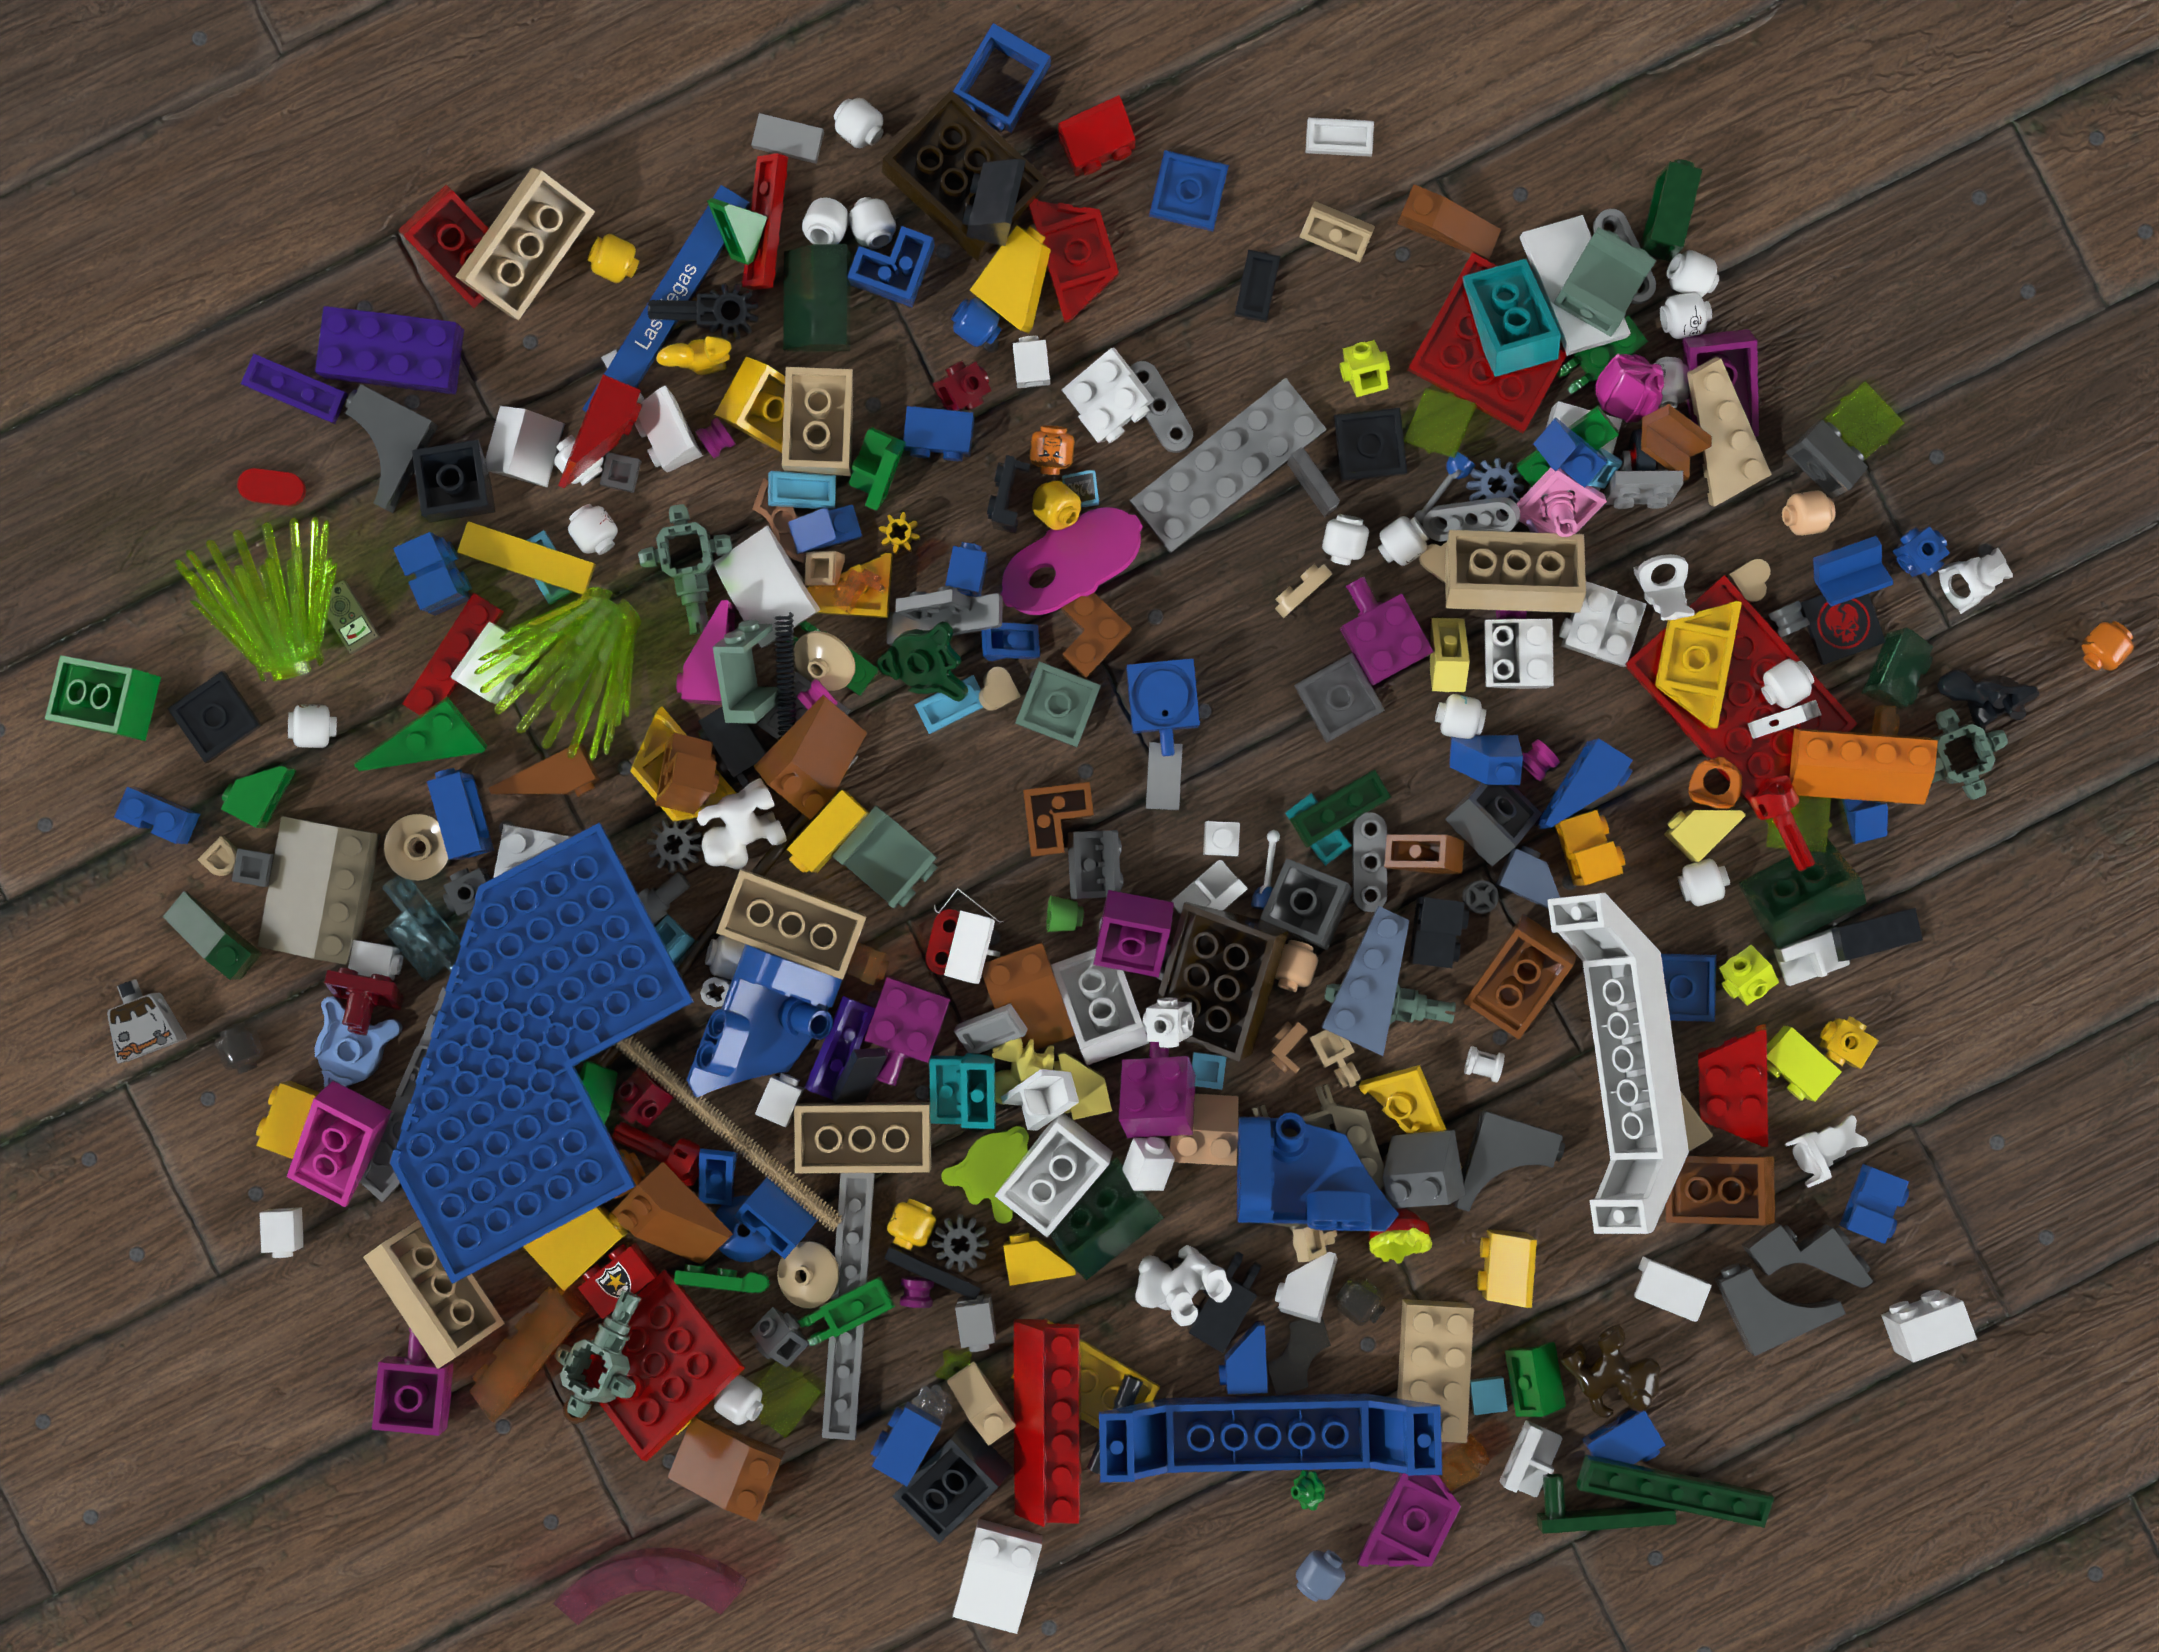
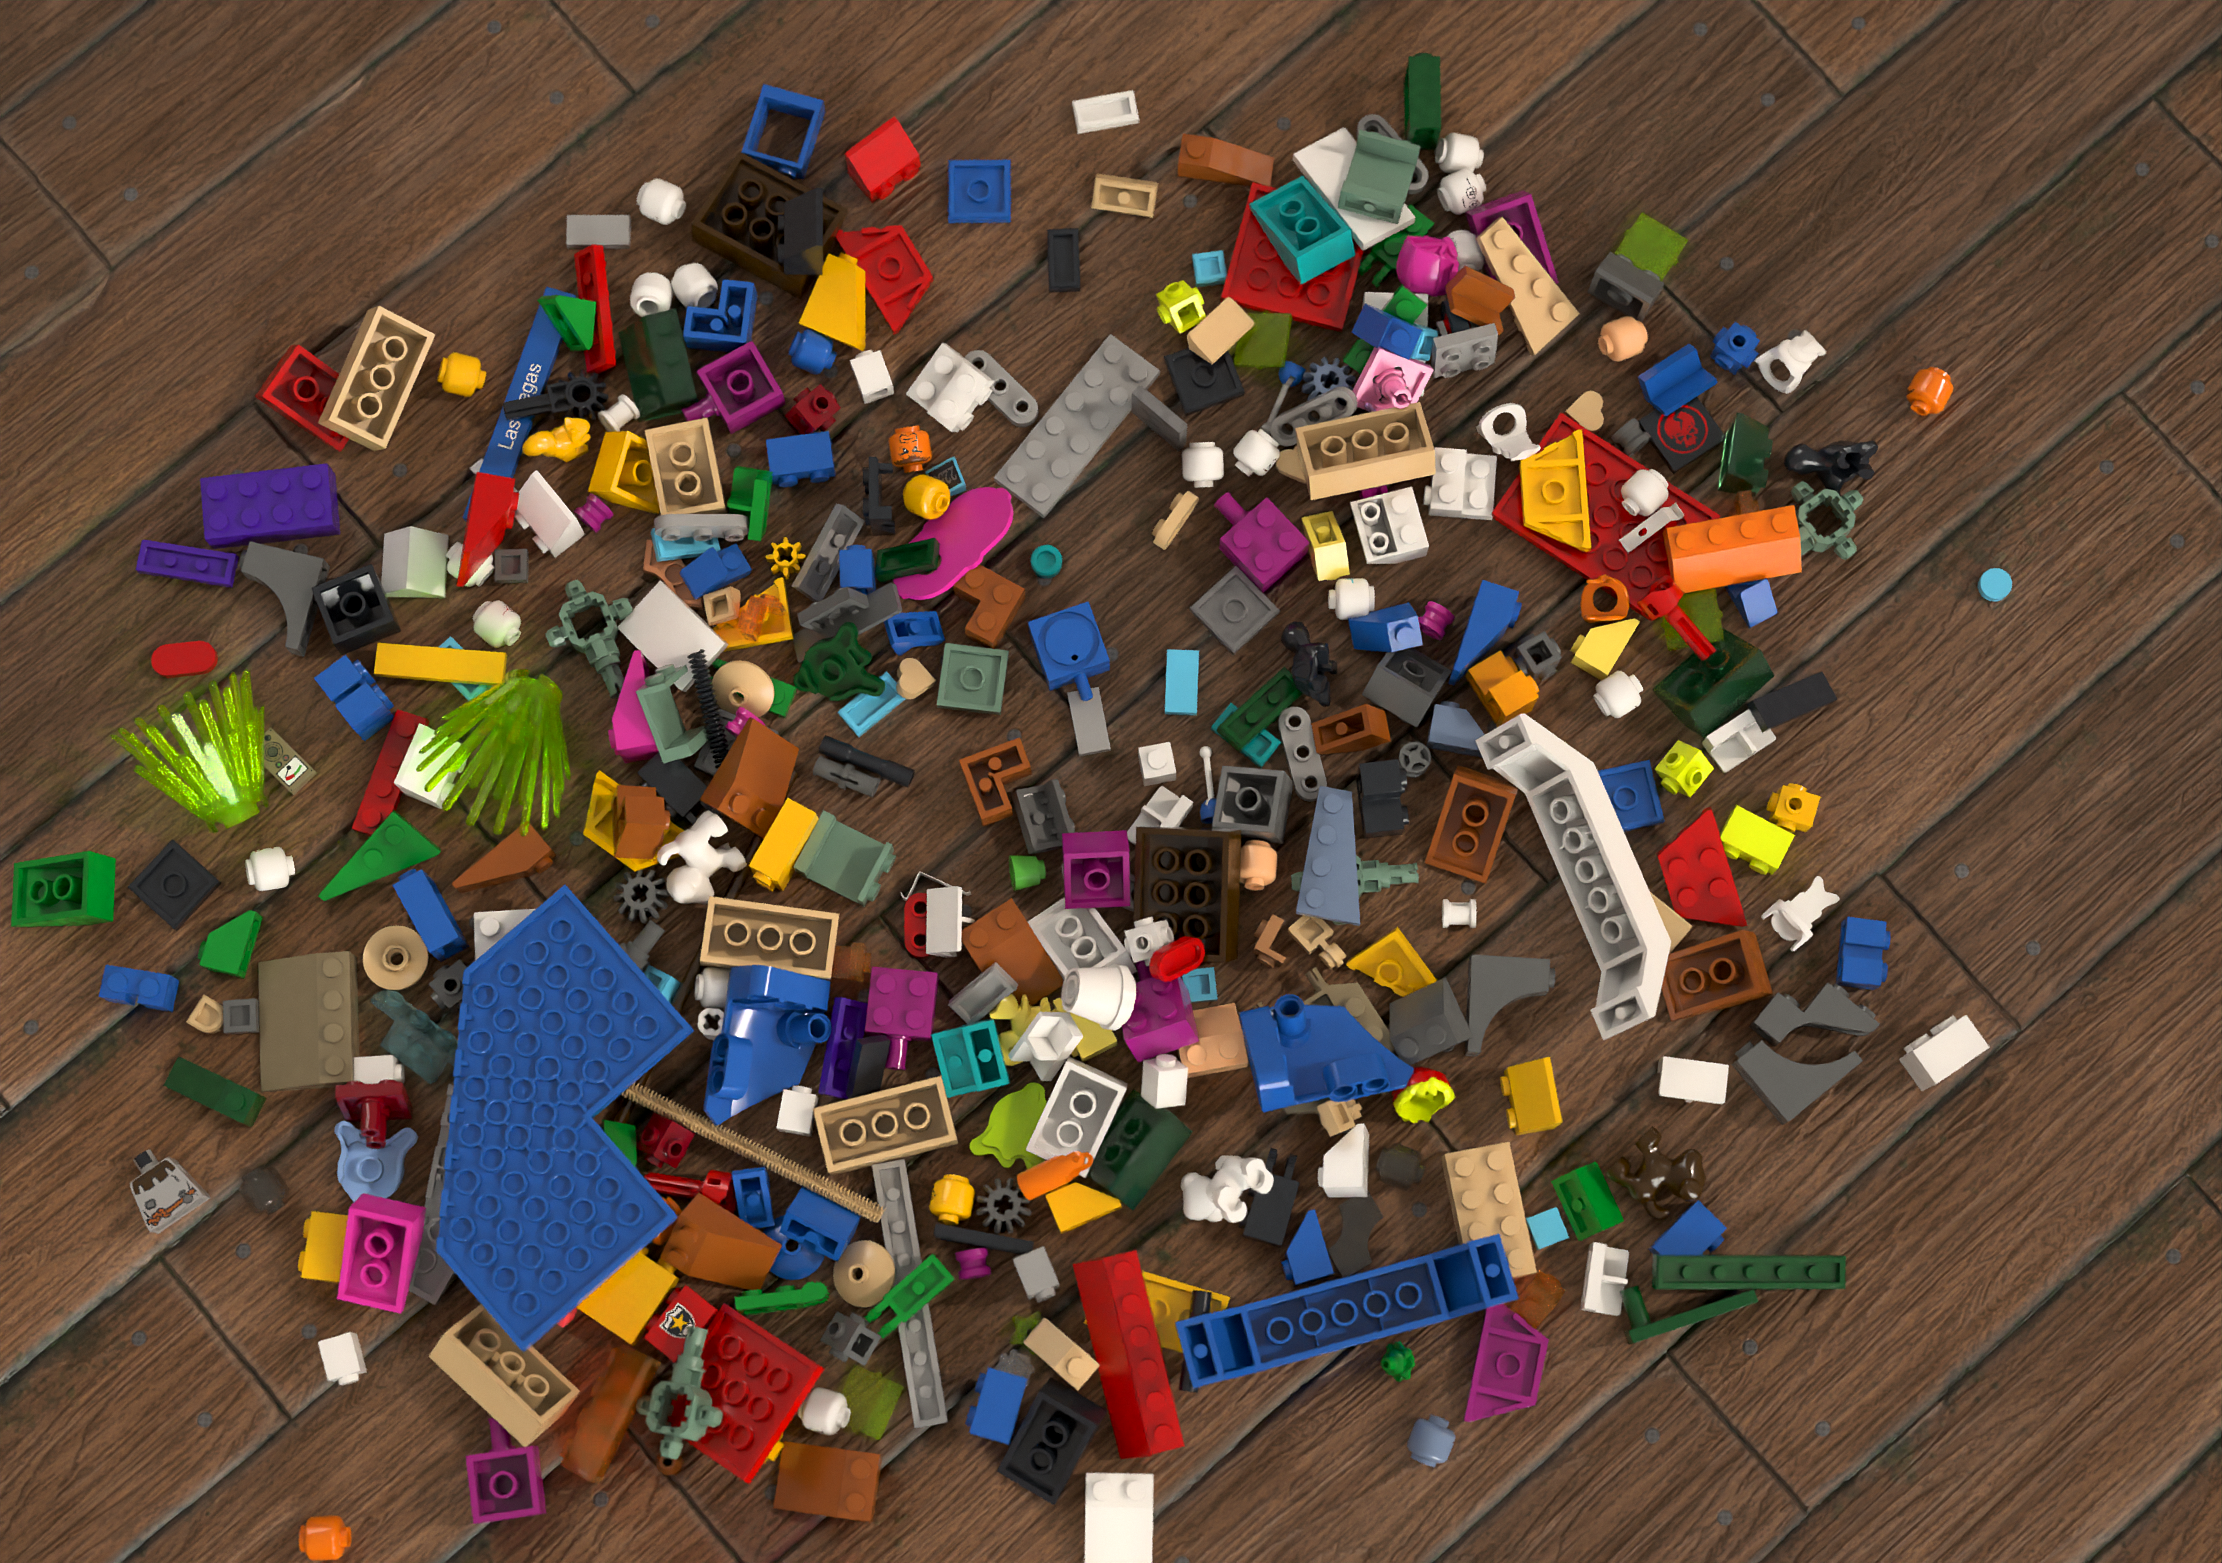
camera: 15 degrees left, 10 degrees down
(227, 1401) = (324, 1537): none -> orange head
(764, 341) = (619, 414): none -> white bush
(821, 482) = (701, 526): none -> light grey plate
(890, 345) = (737, 389): none -> magenta brick
(907, 773) = (846, 776): none -> dark grey pin
(915, 750) = (848, 754): none -> black piece
(937, 543) = (823, 558): none -> light grey plate
(1014, 1228) = (1052, 1173): none -> orange piece
(1021, 566) = (907, 559): none -> dark green tile
(1106, 1067) = (1100, 994): none -> white piece
(1161, 600) = (1046, 561): none -> teal tile
(1191, 1049) = (1176, 958): none -> red tile
(1267, 759) = (1181, 682): none -> medium azure tile
(1398, 403) = (1219, 330): none -> tan slope
(1400, 773) = (1309, 663): none -> black animal
(1404, 332) = (1209, 268): none -> medium azure tile
(1644, 824) = (1541, 647): none -> dark grey brick
(2115, 861) = (1994, 584): none -> medium azure tile

